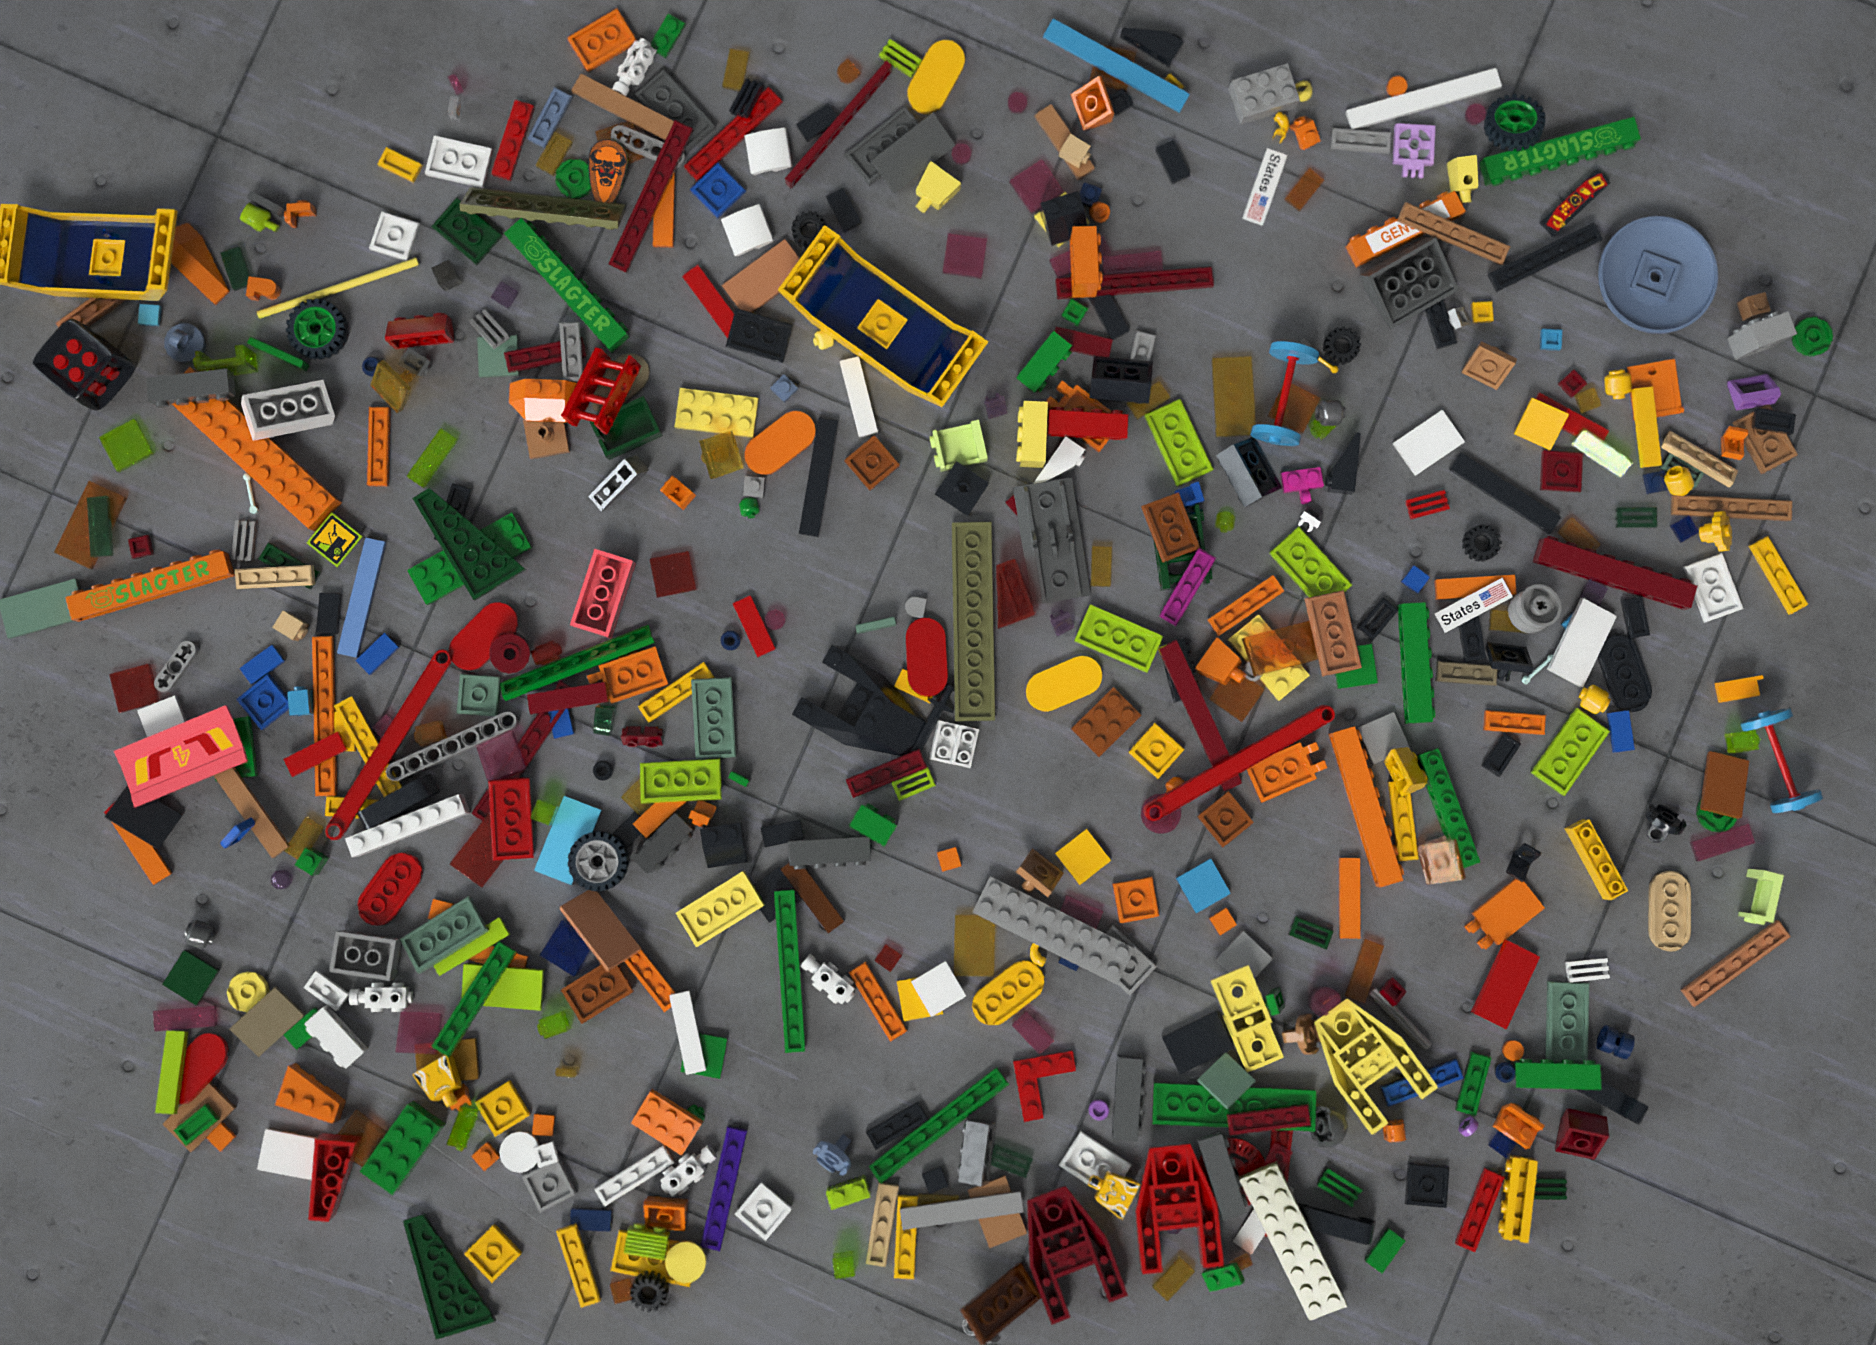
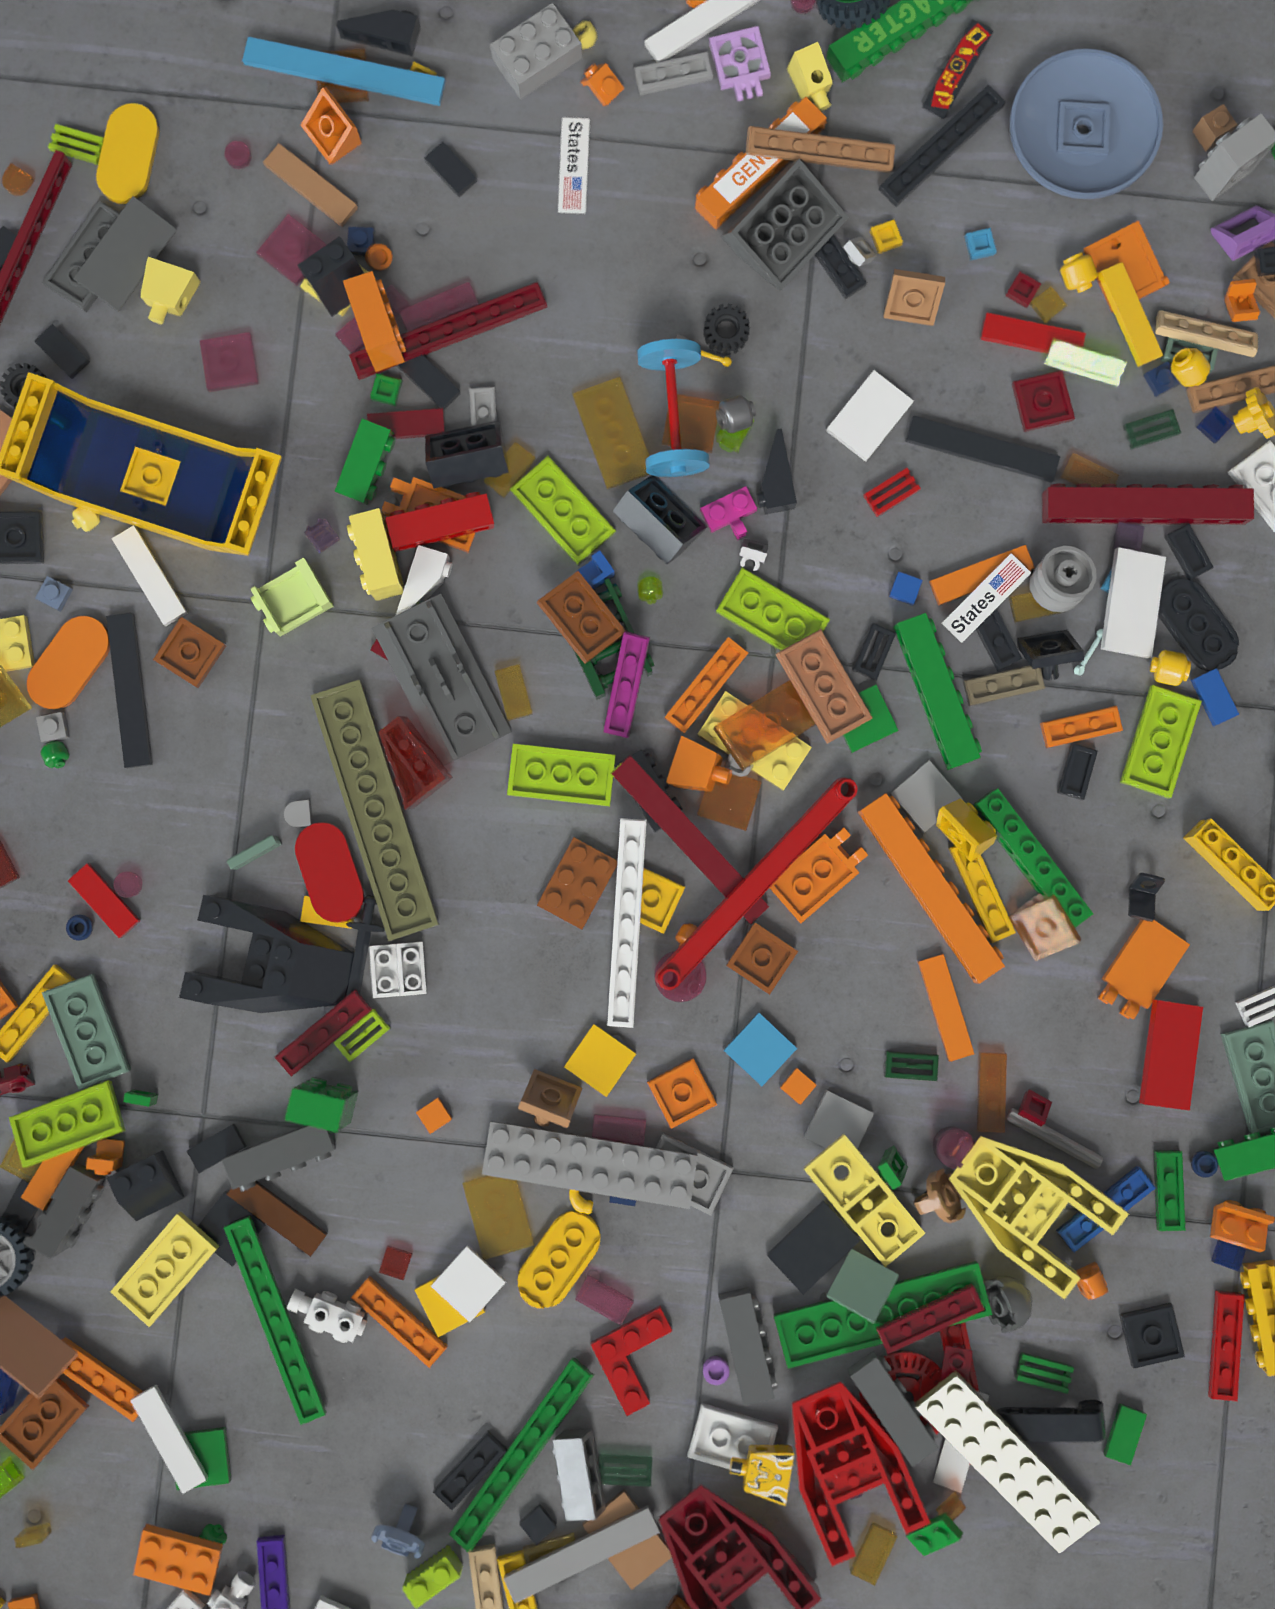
camera: 15 degrees left, 0 degrees up
(961, 154) = (187, 238): clear pink tile -> none
(962, 488) = (310, 649): black tile -> none
(1061, 623) = (485, 778): clear purple tile -> none
(1063, 683) = (511, 852): yellow tile -> none
(1075, 151) = (324, 190): tan brick -> none
(1120, 102) = (363, 116): black tile -> none
(1134, 762) = (627, 922): none -> white tile
(1283, 122) = (571, 79): yellow arm -> none
(1304, 189) = (622, 154): clear orange tile -> none
(1468, 1126) = (1180, 1246): medium lavender tile -> none
(1473, 551) = (980, 505): black tyre -> none
(1512, 1050) = (1205, 1133): orange tile -> none
(1541, 423) = (1000, 350): yellow tile -> none

